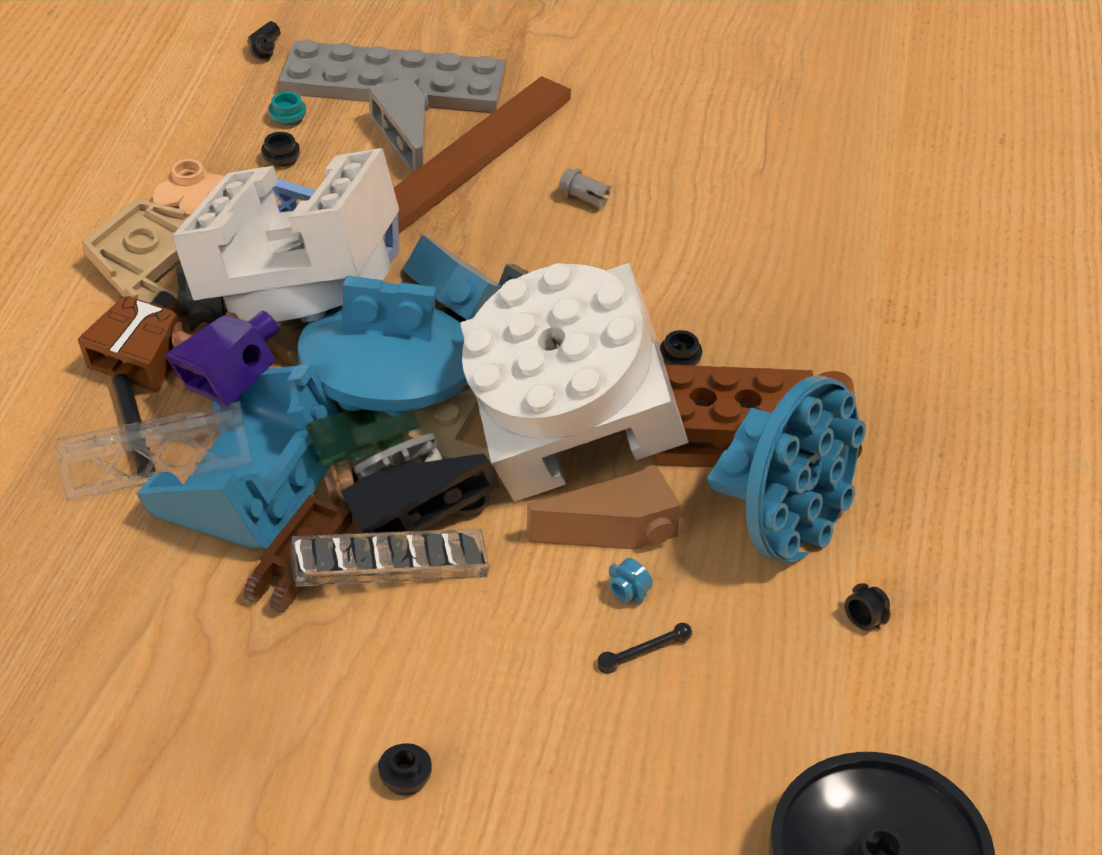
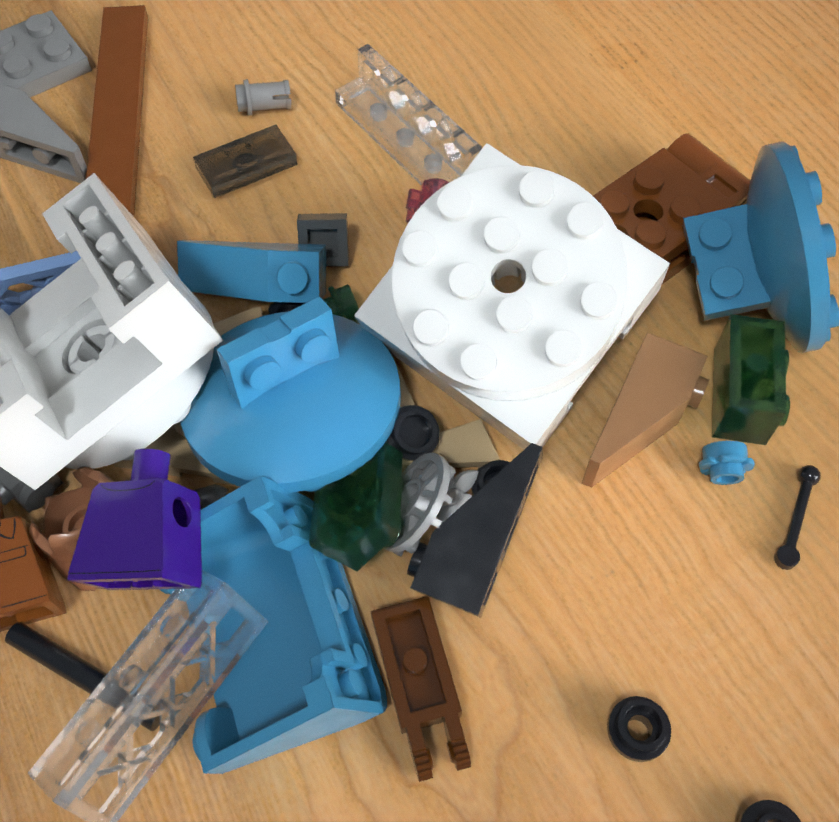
camera: 40 degrees left, 15 degrees up
(339, 479) = (382, 572): medium nougat plate -> none
(388, 557) = (513, 623): tile -> none
(395, 654) = (651, 716): none -> black plate
(442, 420) = (414, 432): none -> black plate
(526, 219) = (245, 161): none -> clear smoke plate
(660, 262) = (403, 121): none -> clear fence
(696, 540) = (750, 380): none -> clear green brick

